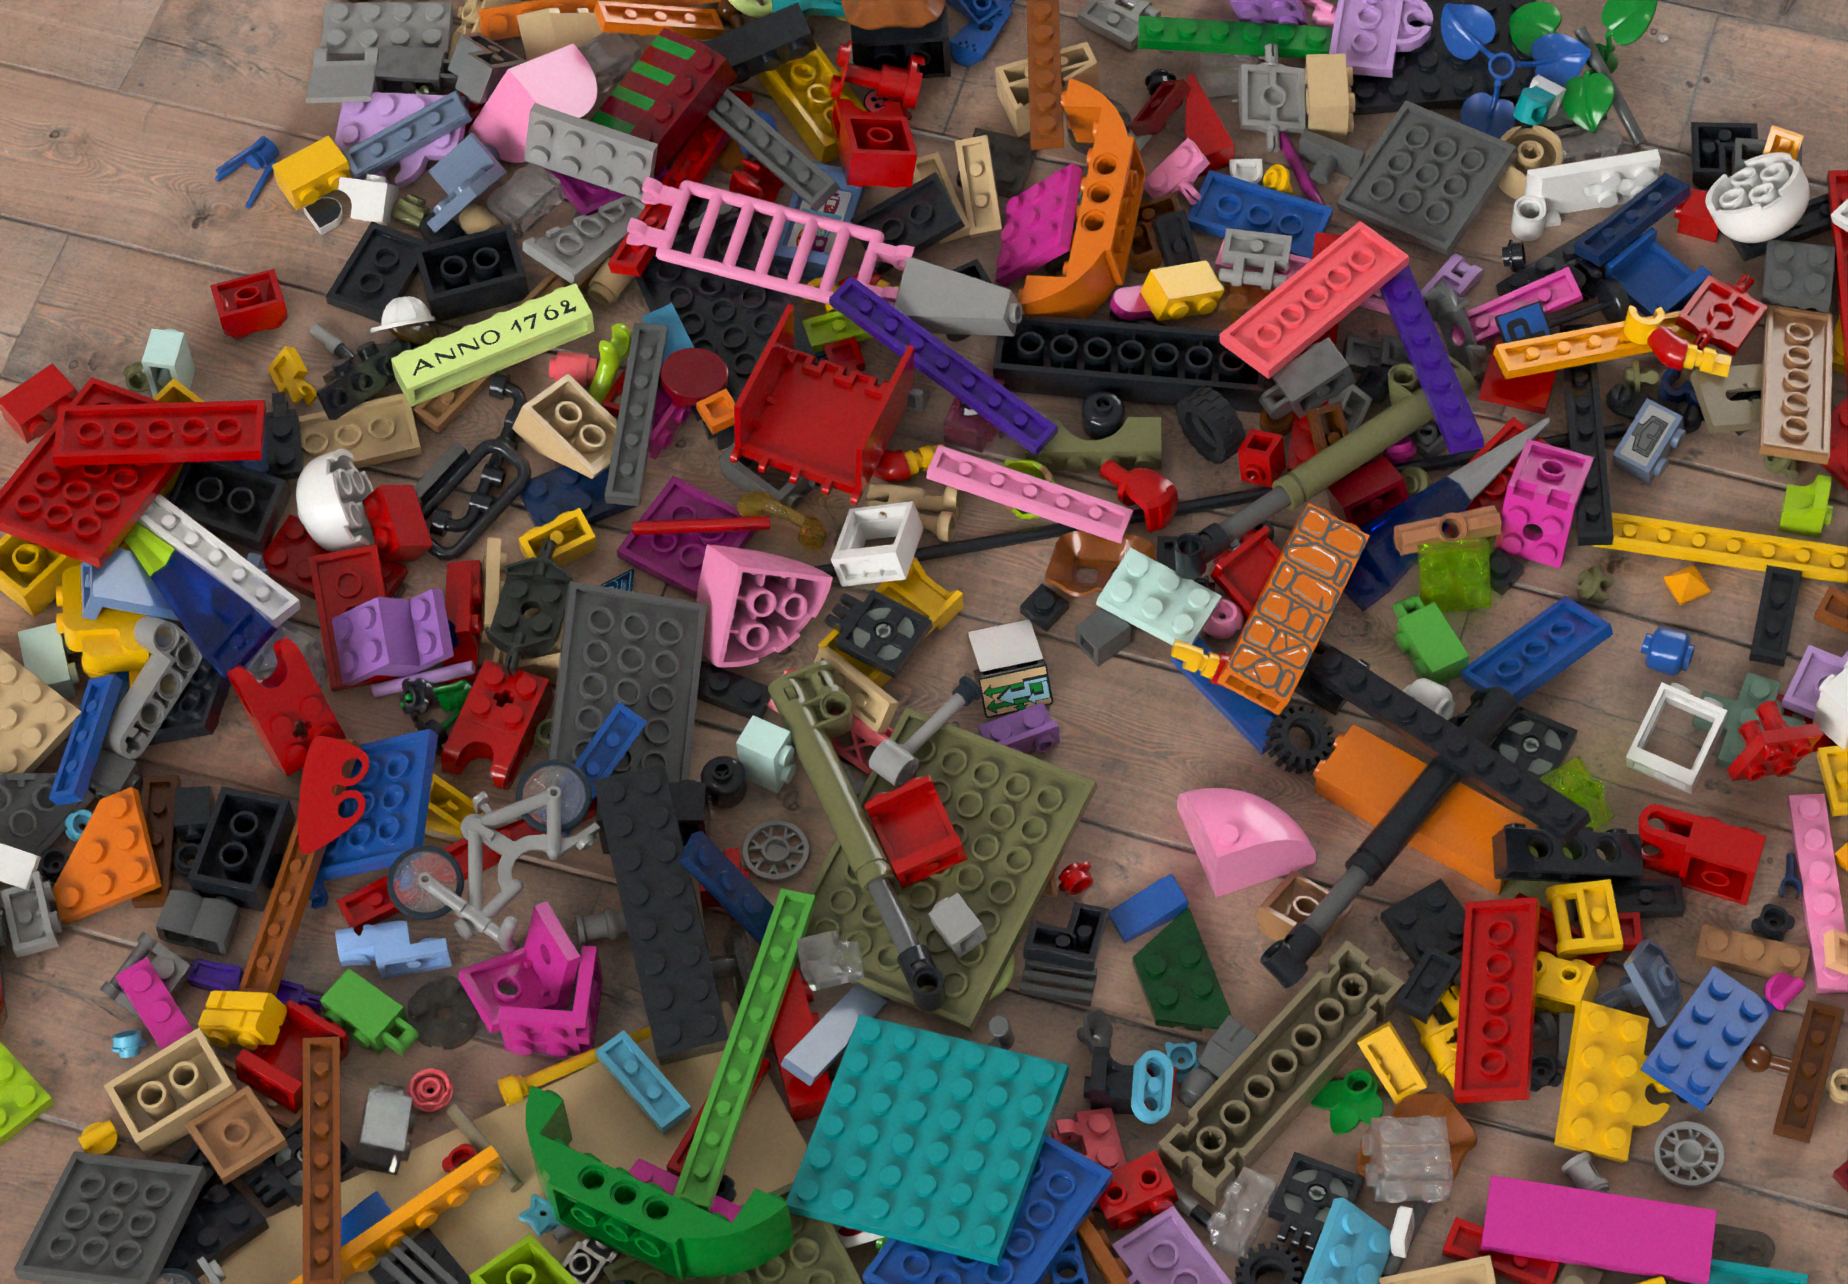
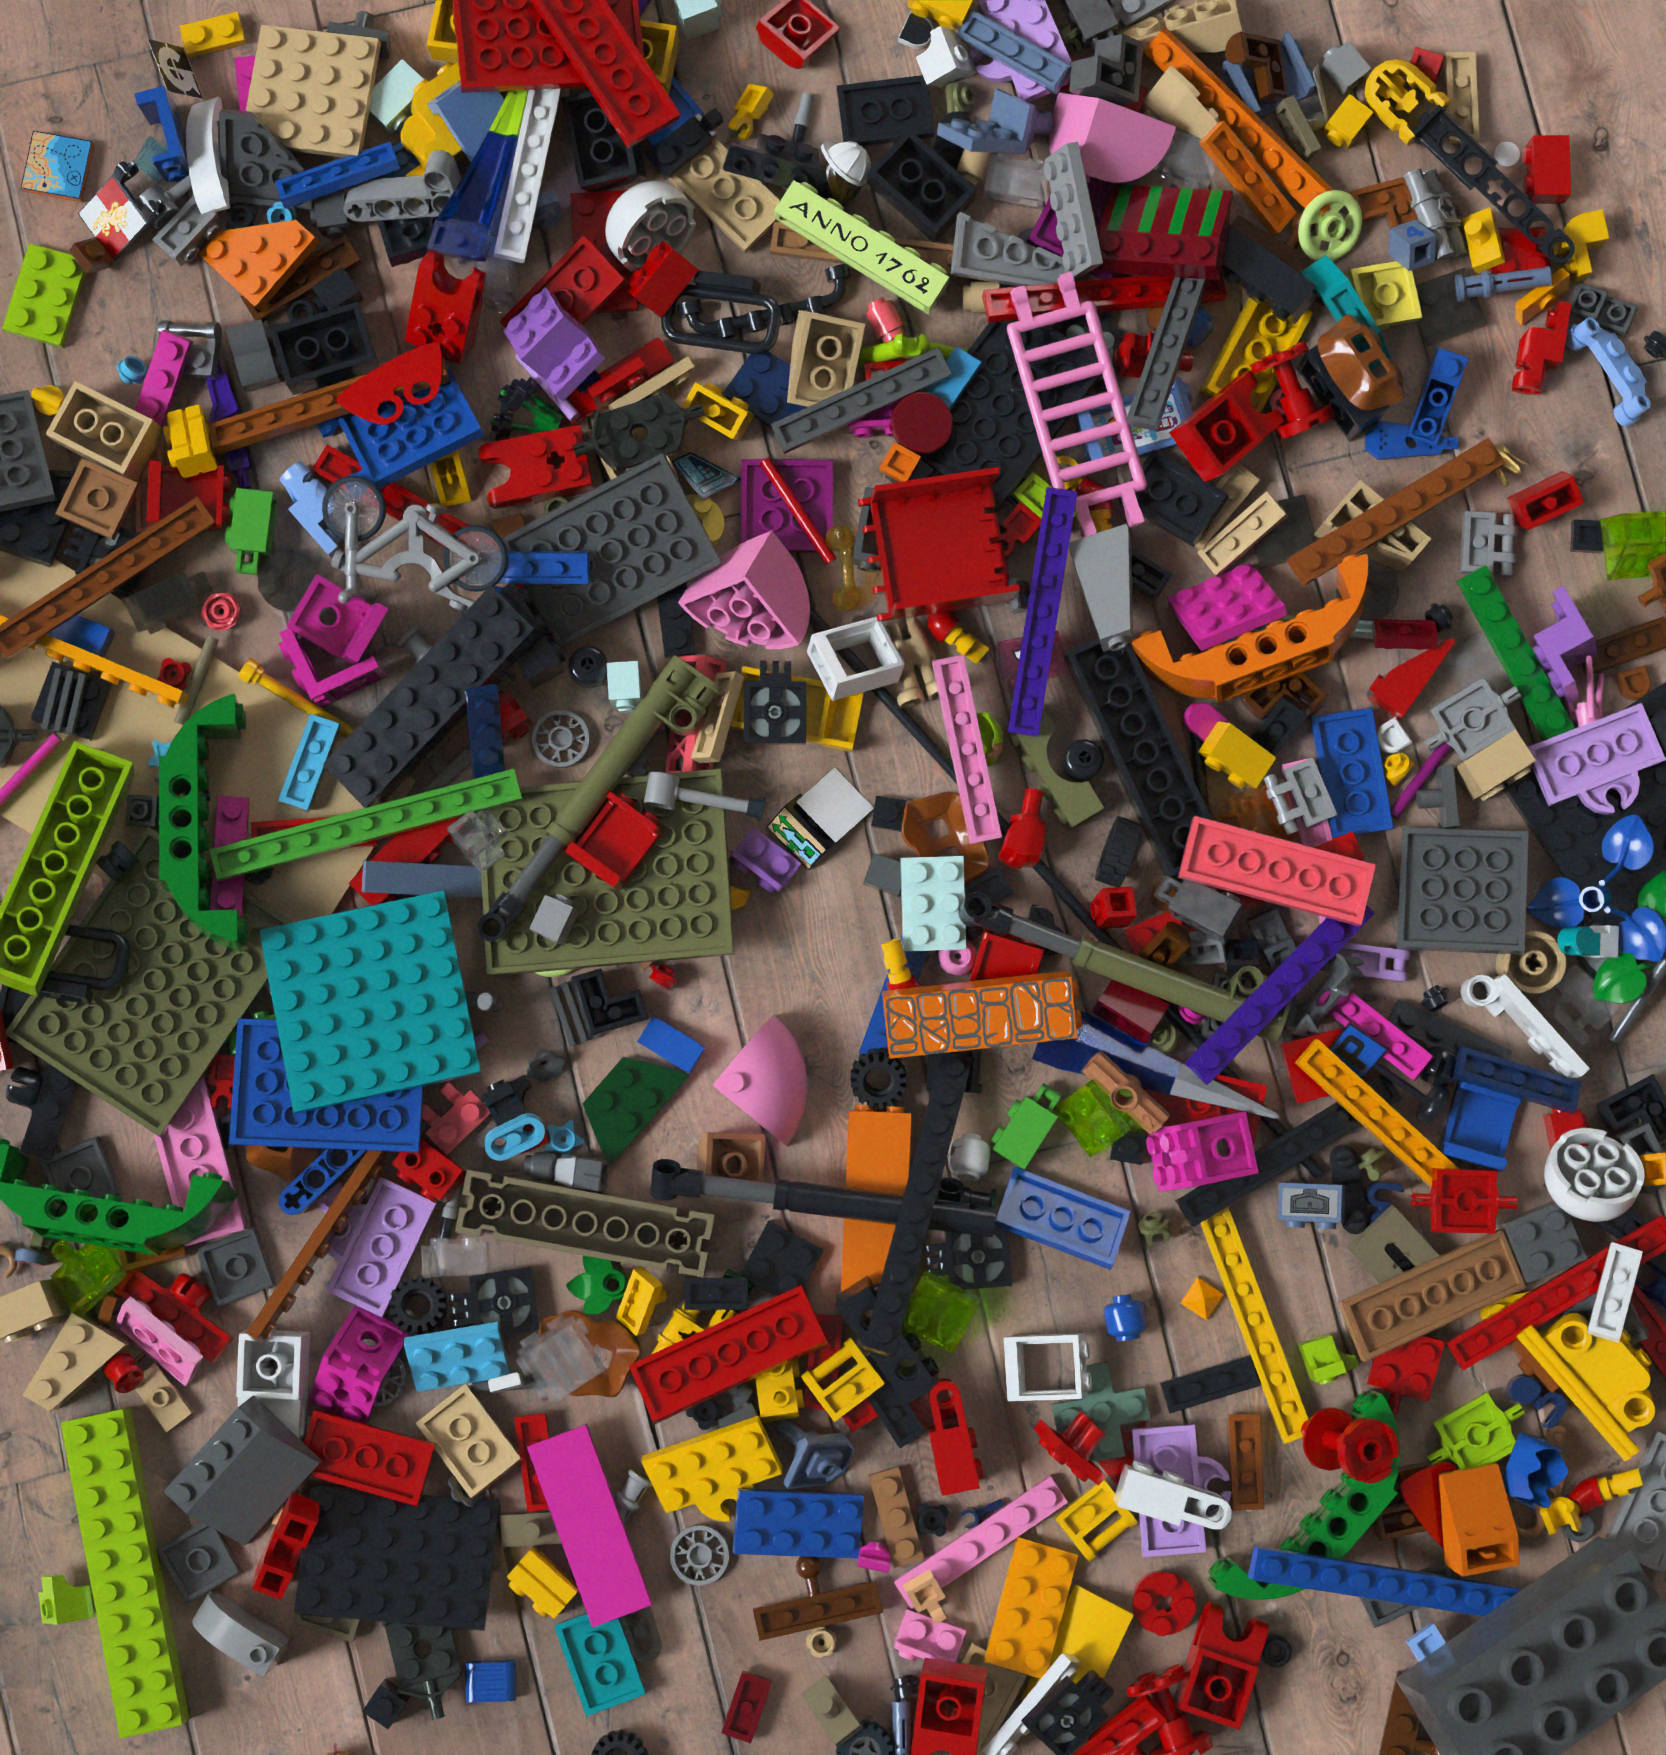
camera: 55 degrees right, 25 degrees up
(1178, 173) = (1349, 686): bright pink plate -> none
(1670, 348) = (1399, 1180): yellow piece -> none

